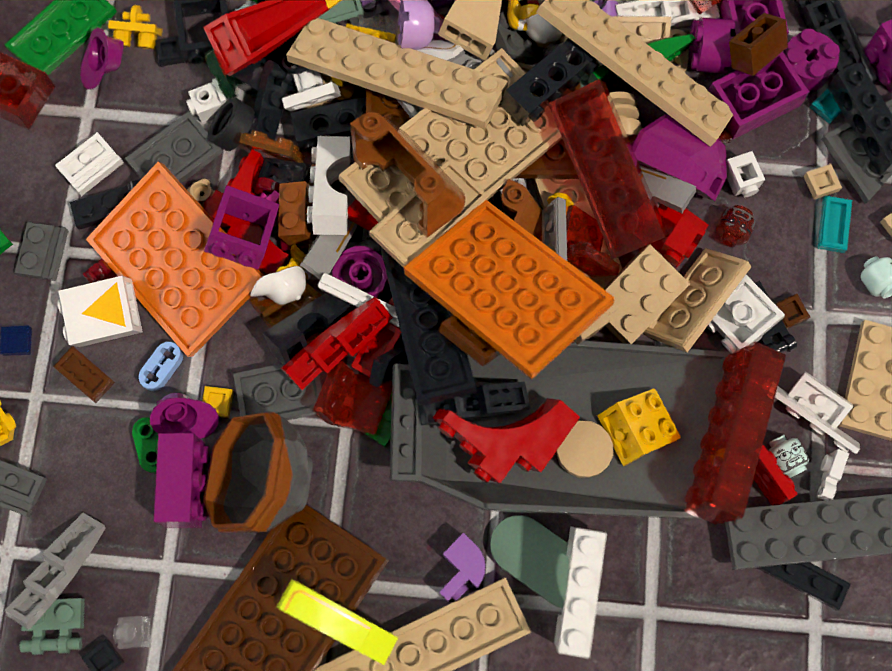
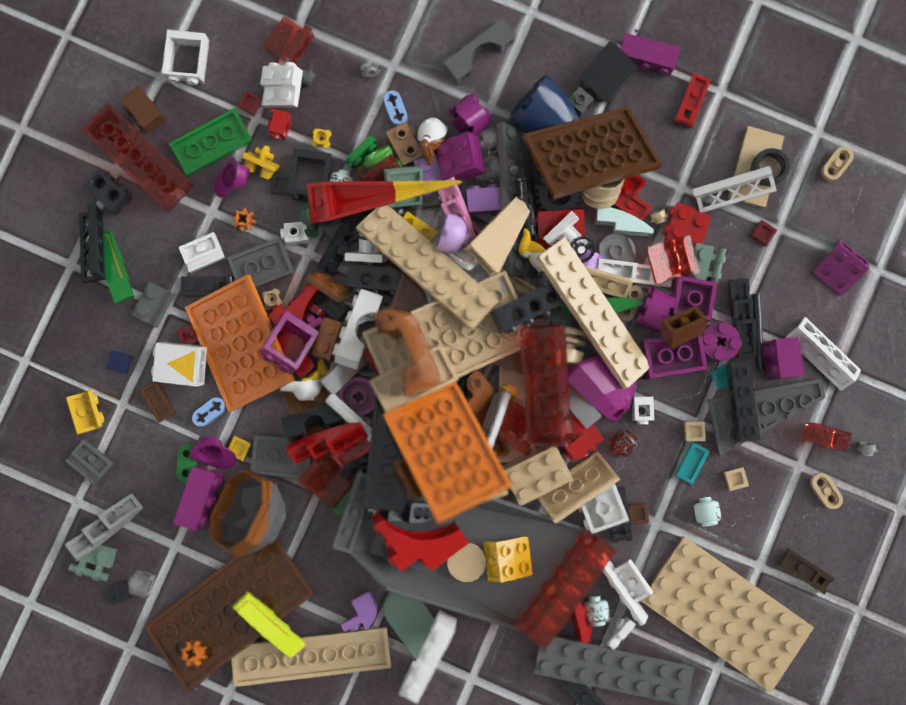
camera: 15 degrees right, 10 degrees up
(134, 106) = (239, 223): none -> orange gear
(229, 123) = (305, 258): black tyre -> none

